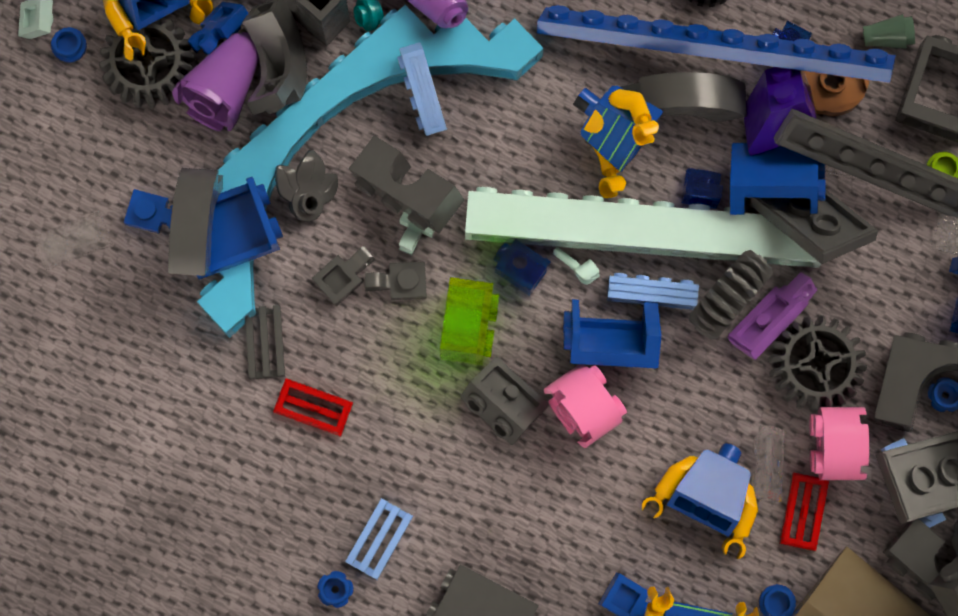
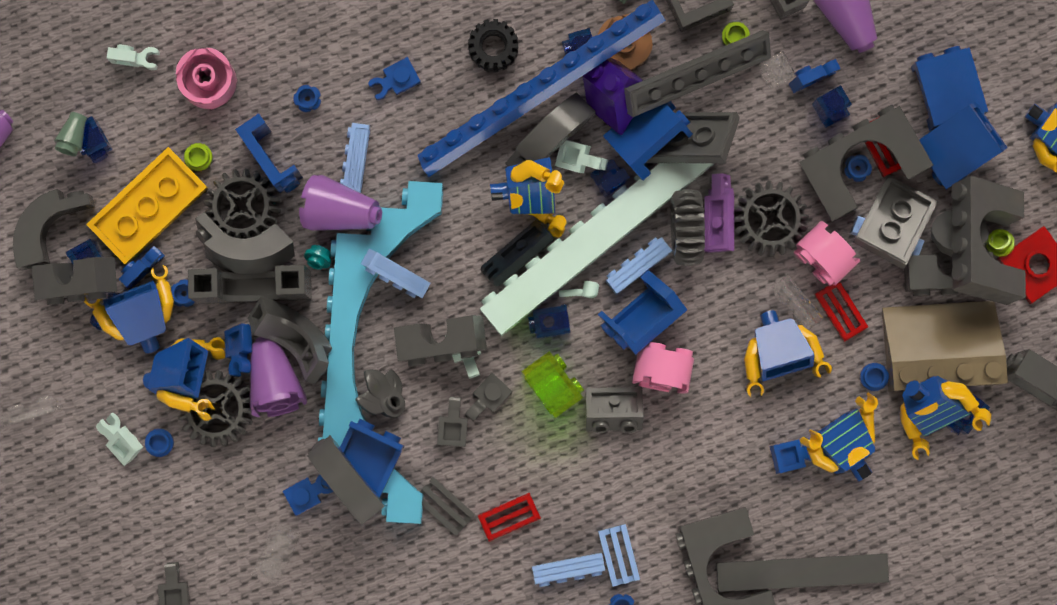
camera: 45 degrees left, 5 degrees up
(322, 506) = (568, 568): none -> light blue piece
(551, 176) = (516, 253): none -> black hinge
(689, 141) = (576, 157): none -> light aqua plate

